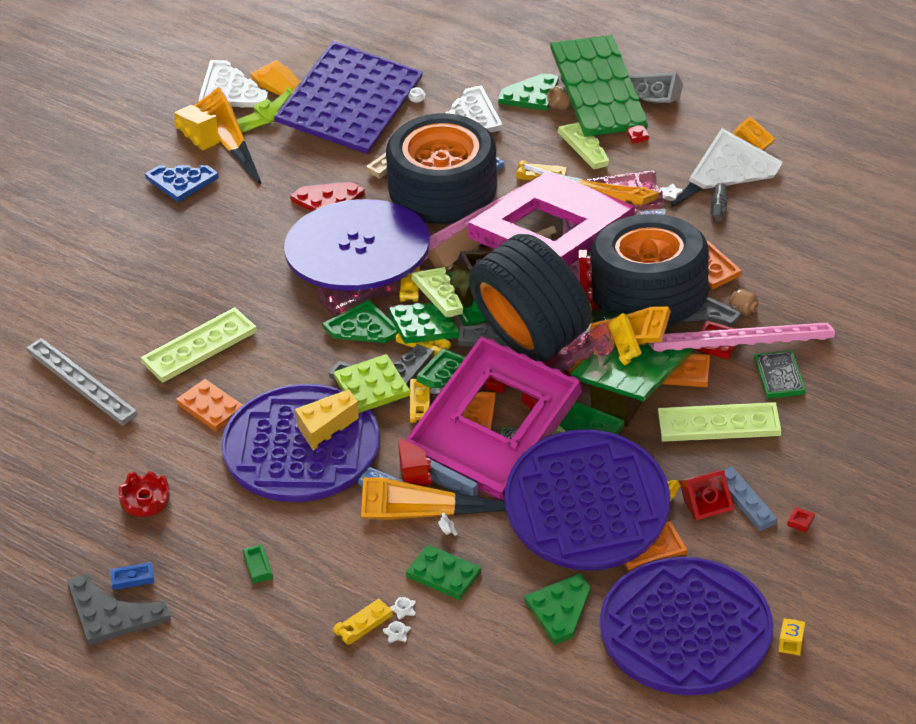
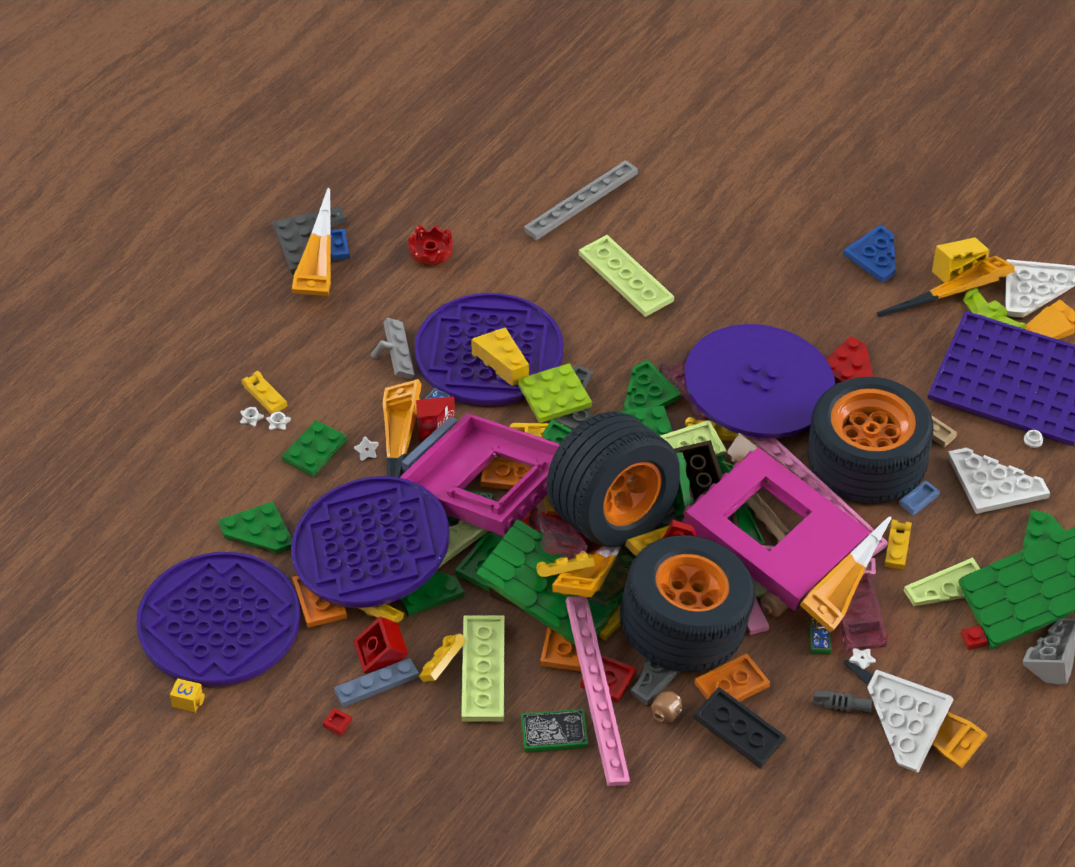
camera: 90 degrees right, 5 degrees up
(180, 588) = (314, 269): none -> light orange plate
(209, 404) = (547, 286): orange plate -> none
(257, 563) = (344, 324): green tile -> none
(300, 512) = (398, 348): none -> light grey plate
(714, 449) = (442, 657): none -> yellow plate
(758, 258) = (739, 727): none -> black tile

